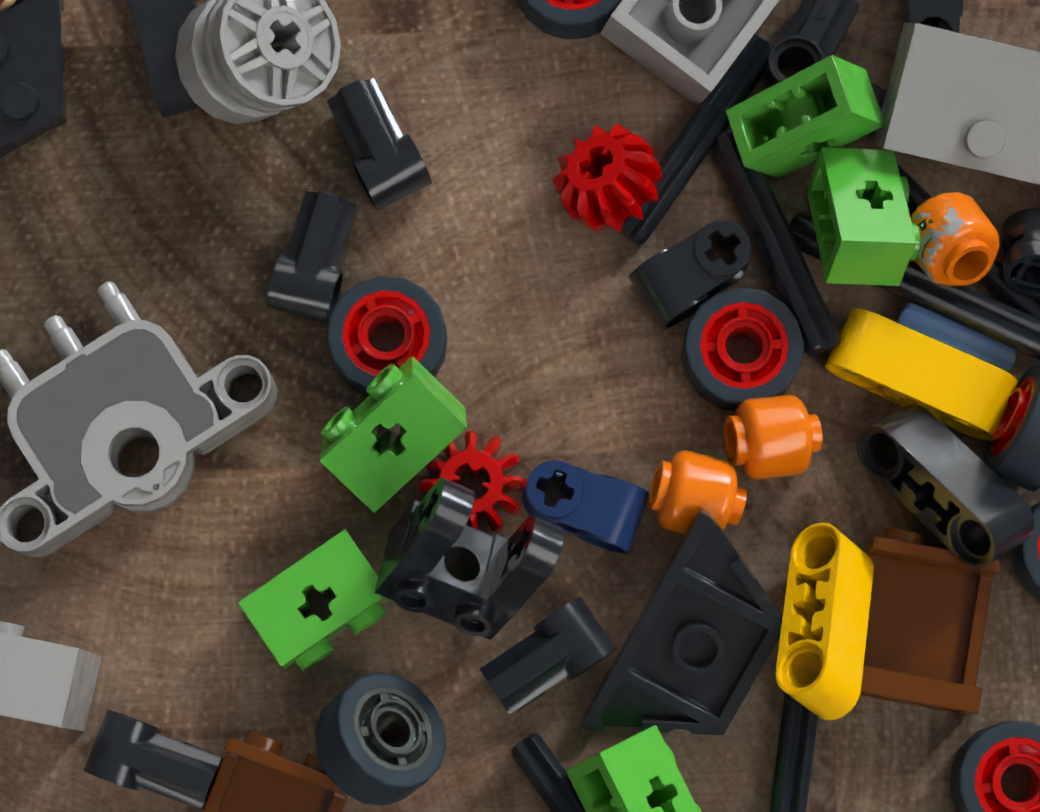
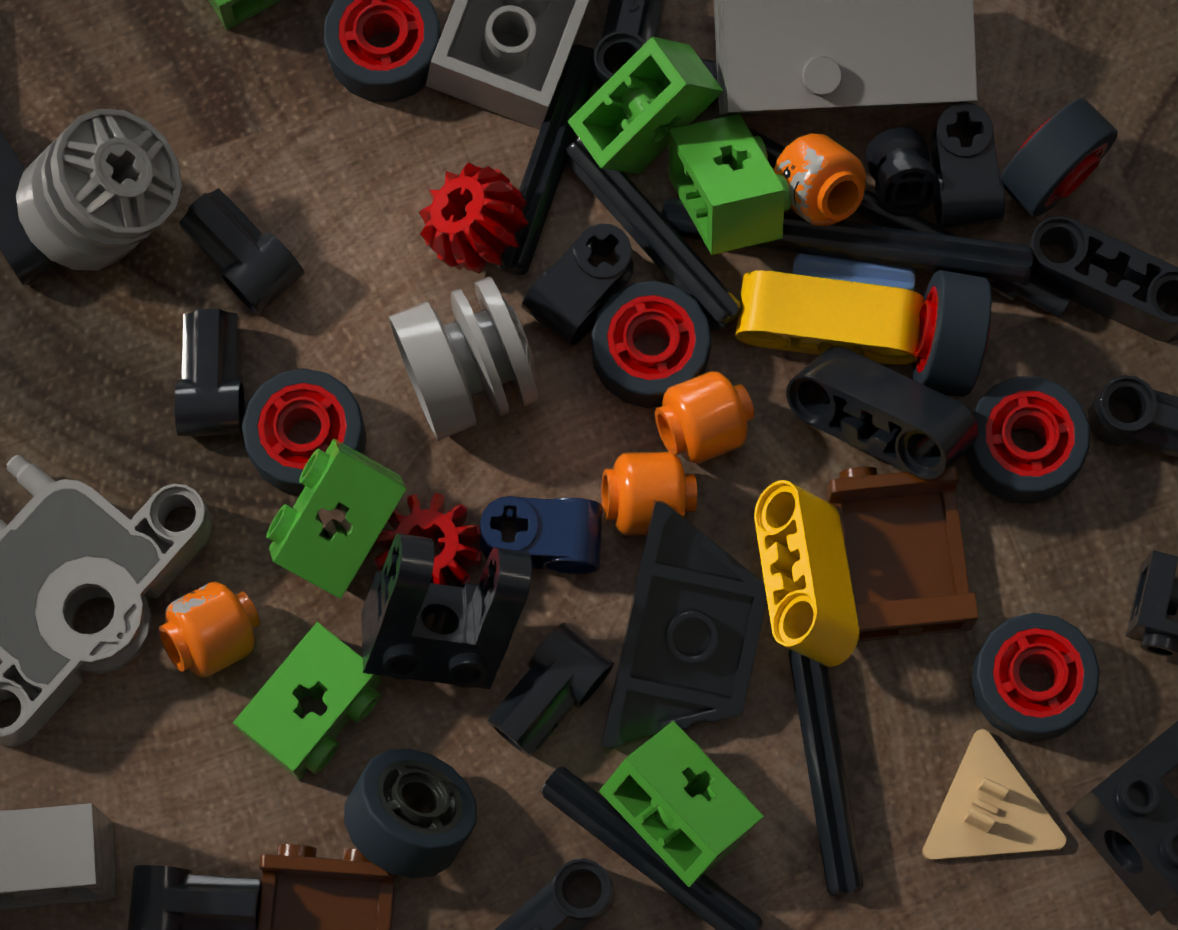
camera: 15 degrees left, 5 degrees down
(243, 503) = (209, 629): none -> orange head
(560, 314) = (465, 357): none -> light grey wheel

